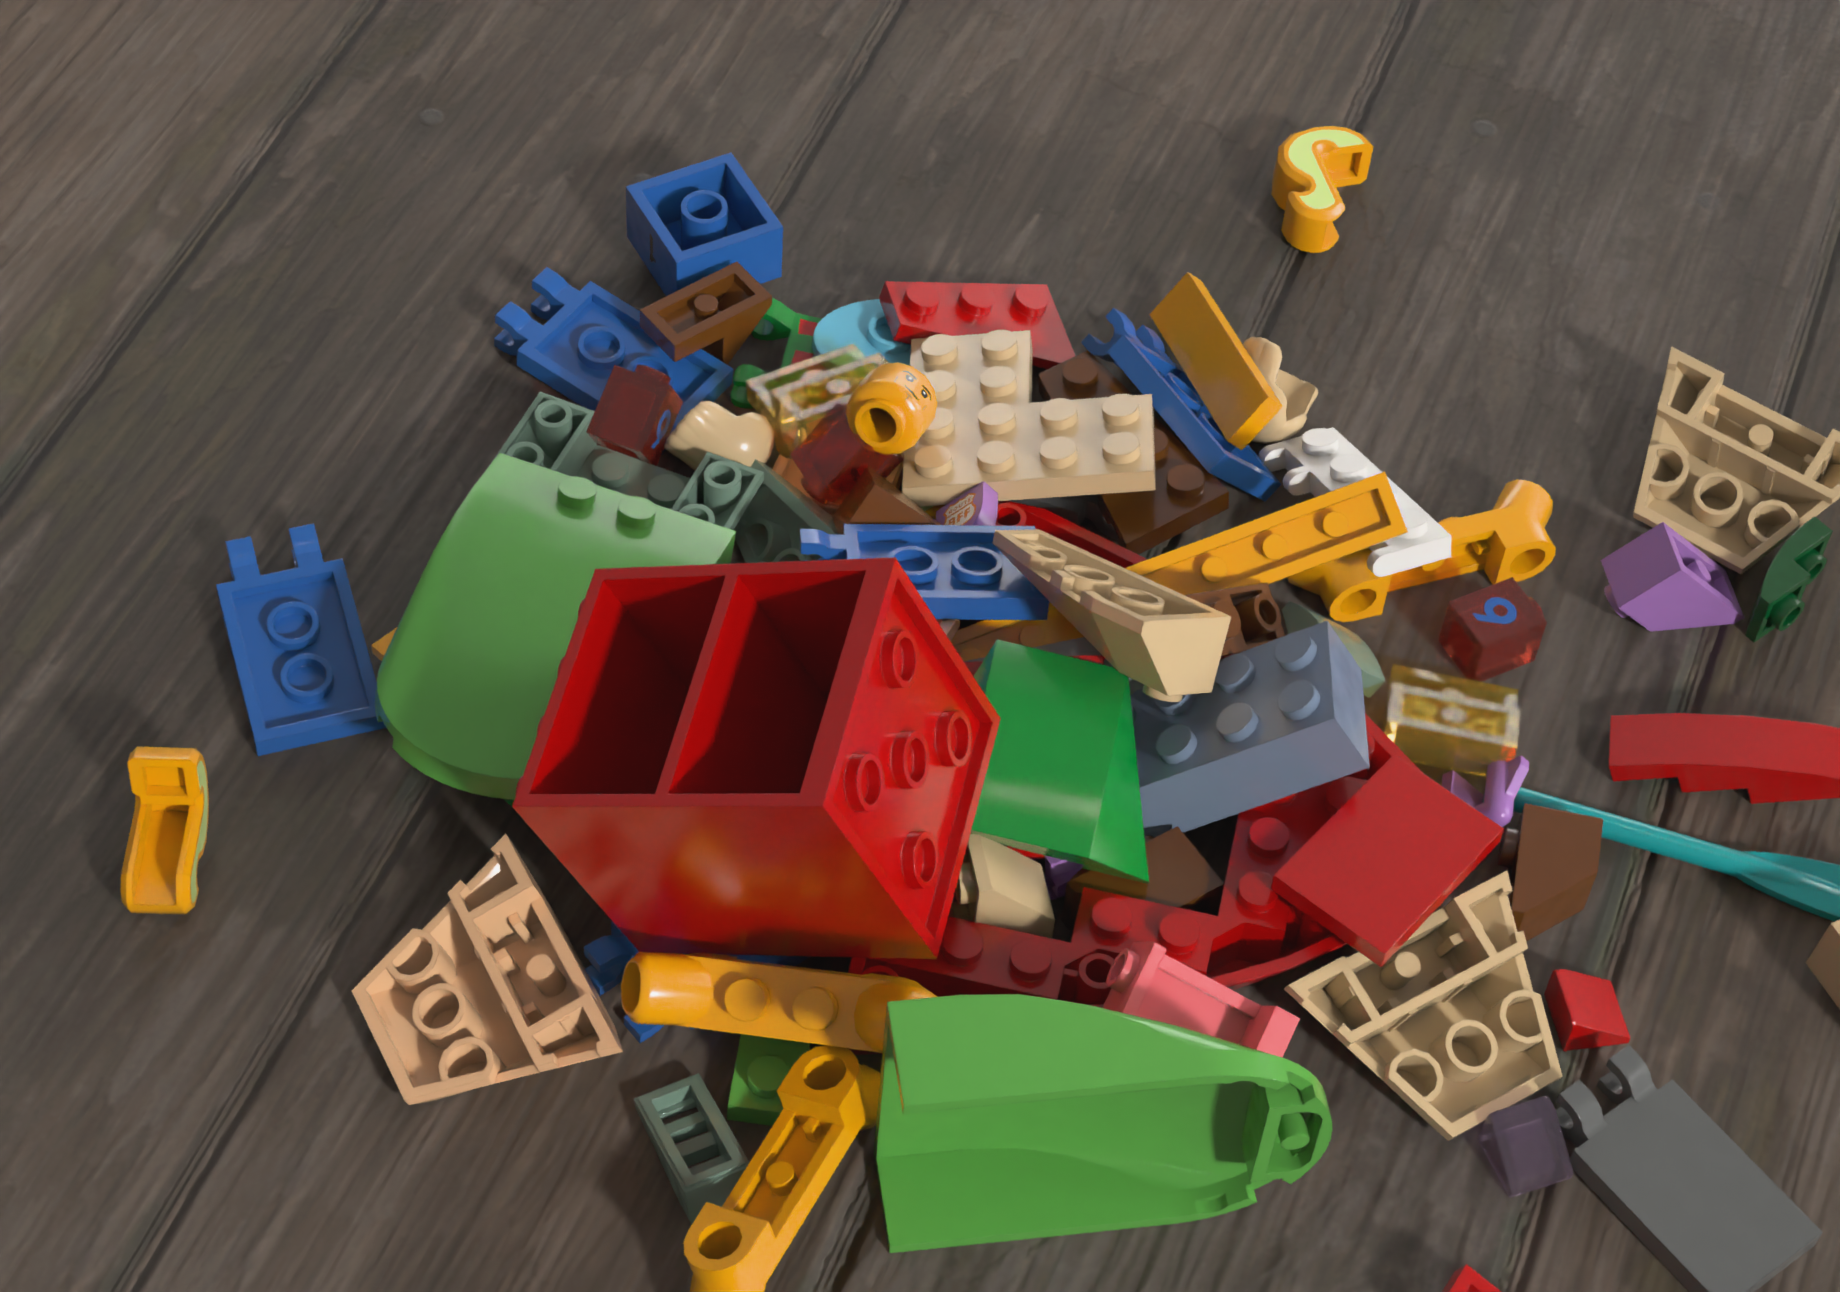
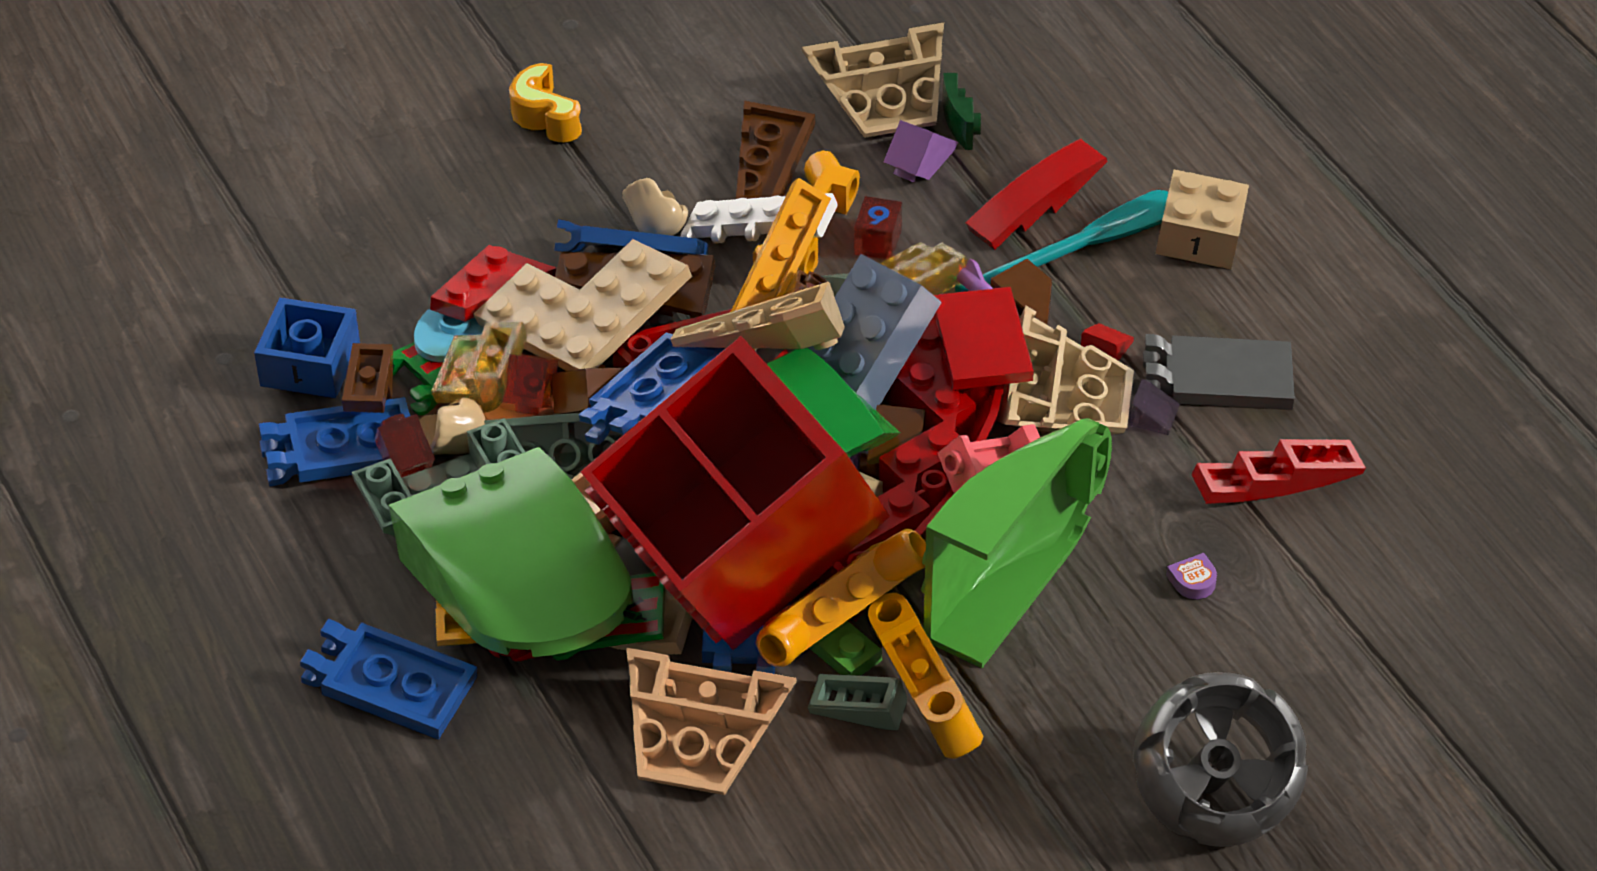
camera: 45 degrees left, 5 degrees down
(165, 830) = (462, 794): light orange animal -> none
(892, 408) = (540, 334): light orange head -> none
(973, 507) = (621, 352): medium lavender tile -> none
(1215, 361) = (620, 210): light orange tile -> none
(1503, 438) = (770, 148): none -> reddish brown wing

